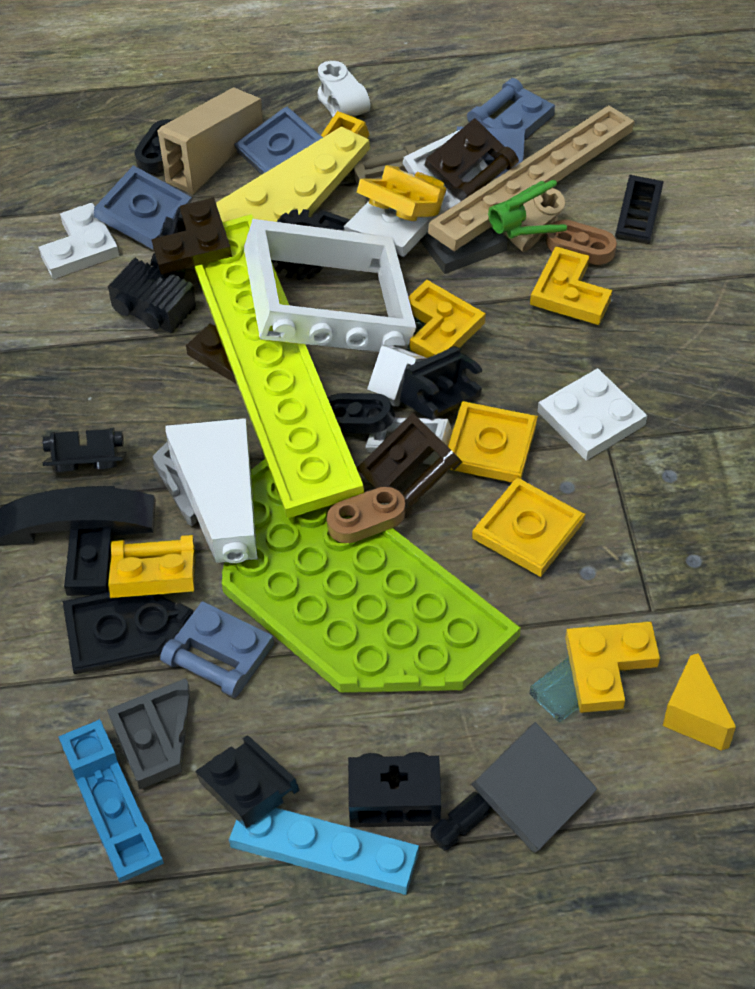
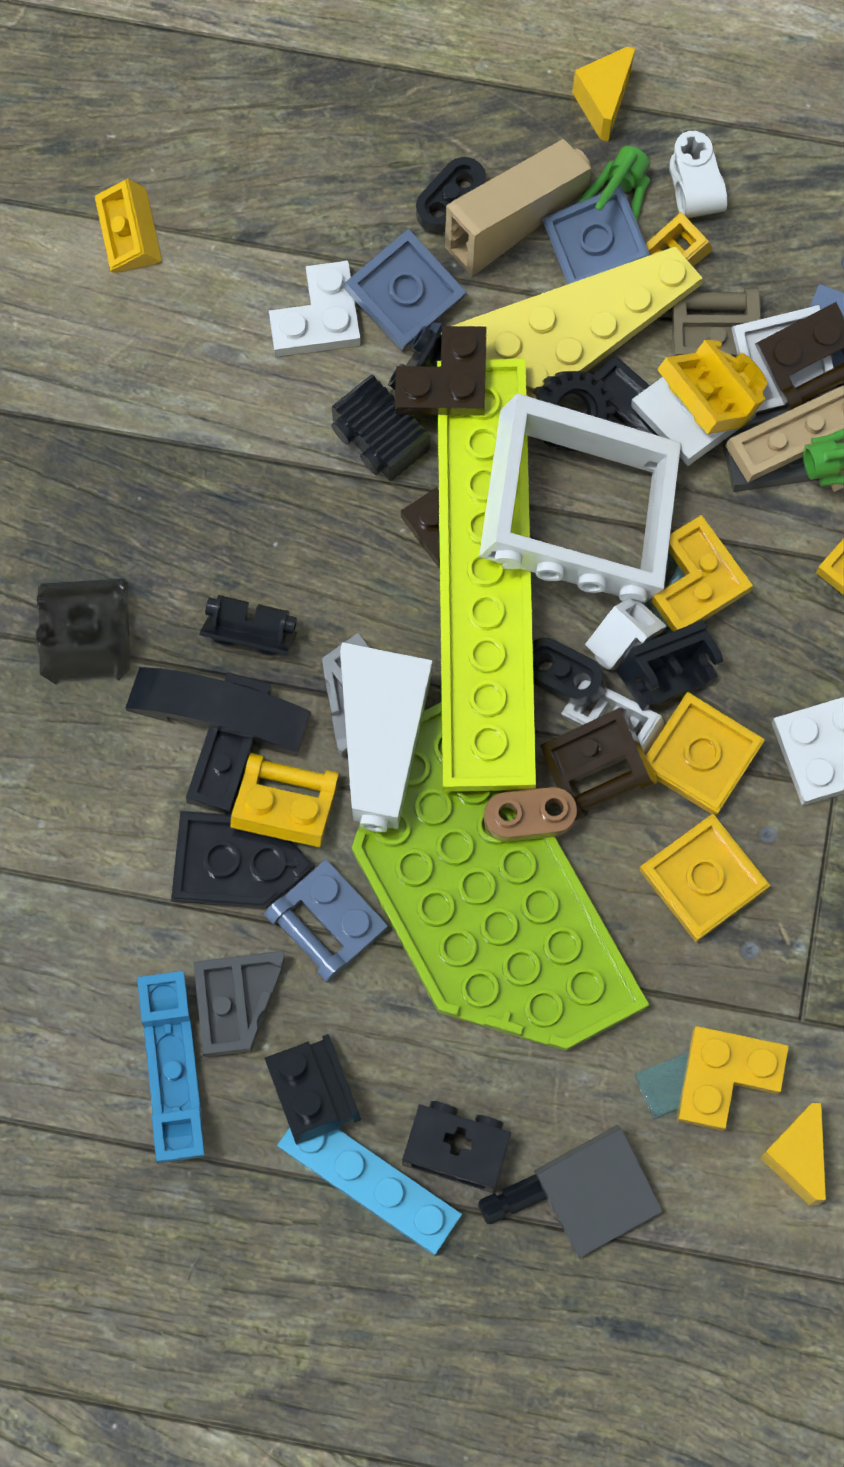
camera: 15 degrees right, 20 degrees up
(251, 60) = (601, 88): none -> yellow slope
(290, 96) = (626, 170): none -> bright green plant

